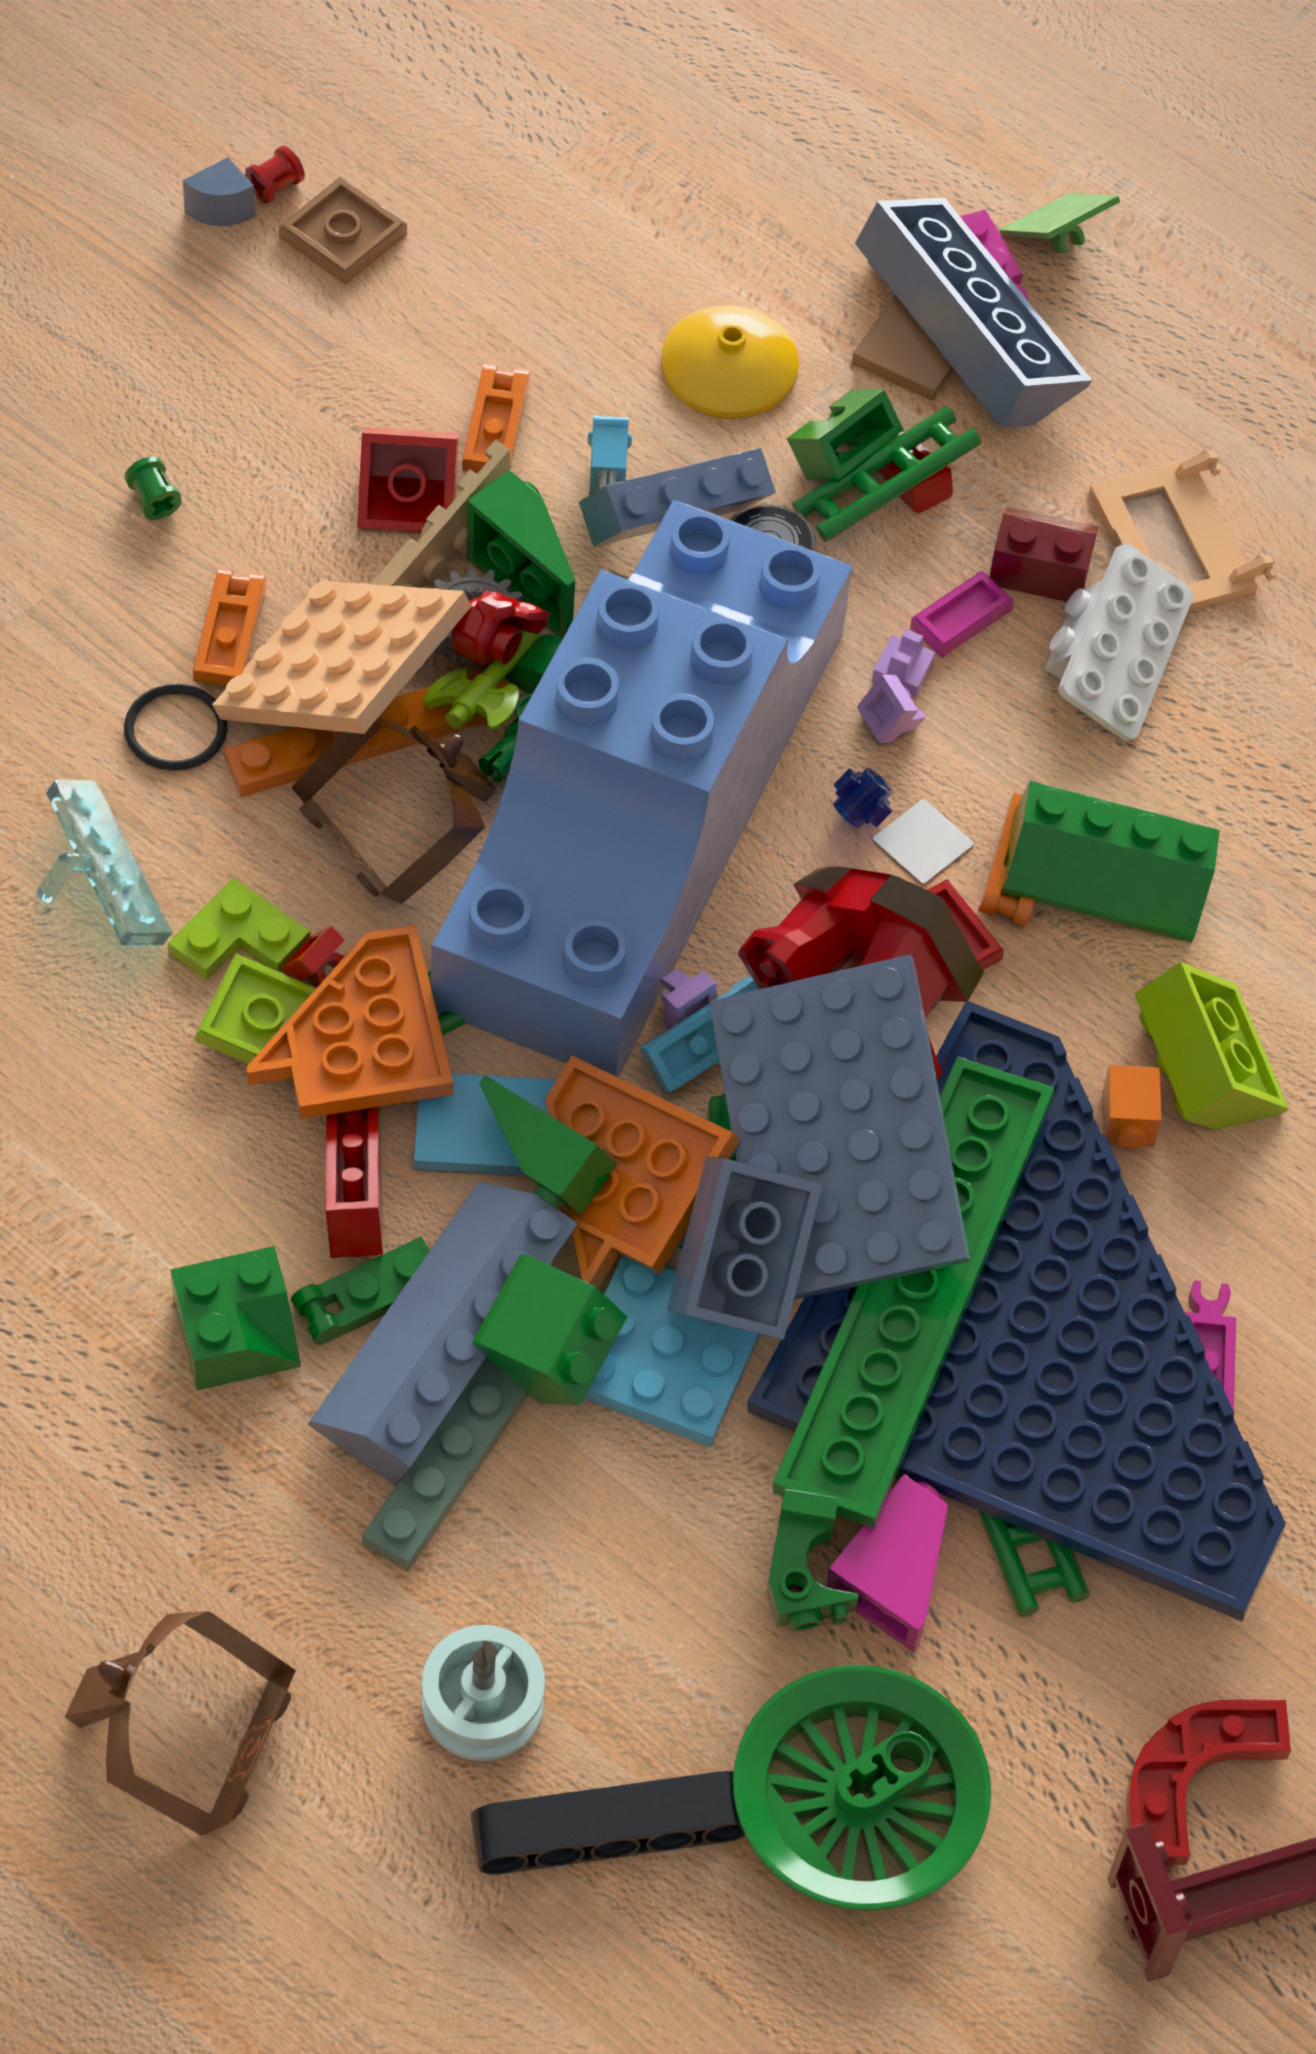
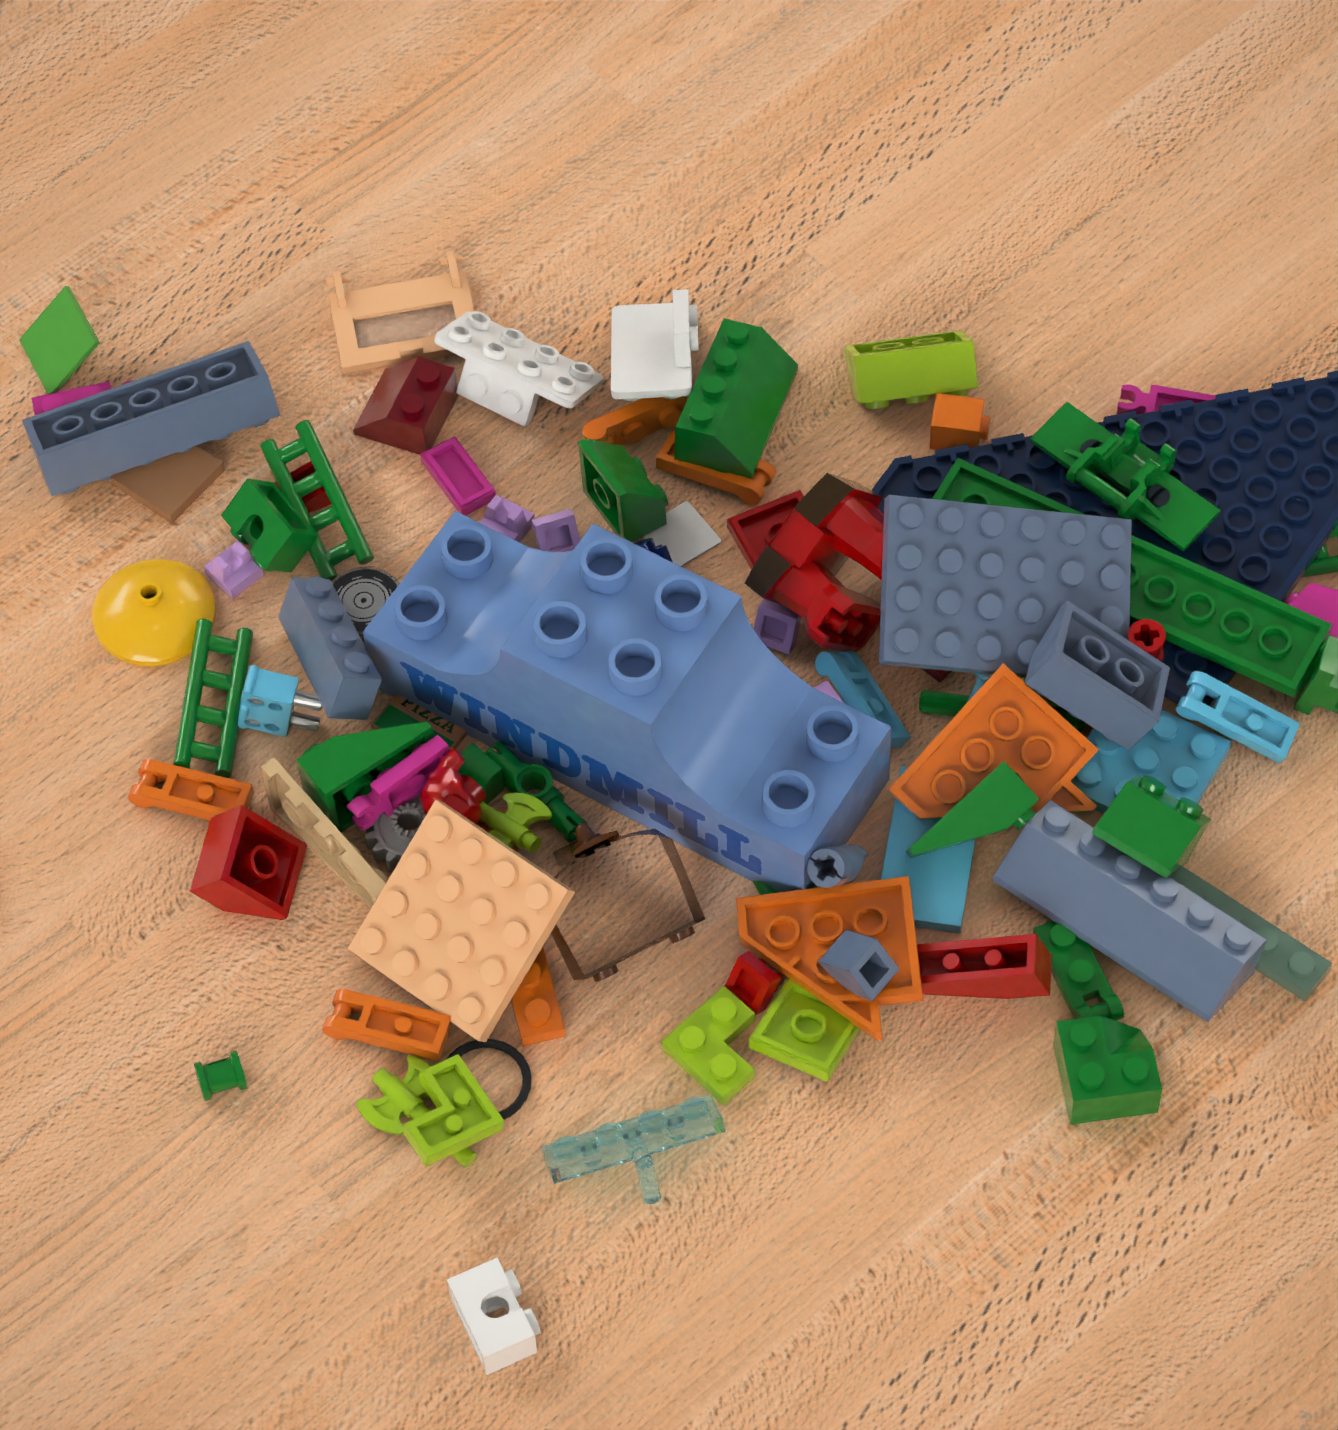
camera: 75 degrees left, 0 degrees up
(116, 698) = (461, 1116): none -> lime plate
(140, 655) = (399, 1099): none -> lime piece
(321, 1034) = (859, 964): none -> sand blue brick
(458, 1008) = (836, 865): none -> sand blue piece
(508, 576) = (398, 784): none -> dark pink plate
(641, 402) = (194, 712): none -> green bar
(739, 1436) = (1238, 716): none -> medium azure plate
(788, 416) = (233, 570): none -> lavender tile
(827, 1308) = (1148, 633): none -> red bush
(957, 755) = (621, 489): none -> green slope
(1055, 756) = (635, 420): none -> orange plate
(1076, 1282) = (1153, 493): none -> green piece
(1163, 767) = (653, 349): none -> white bracket

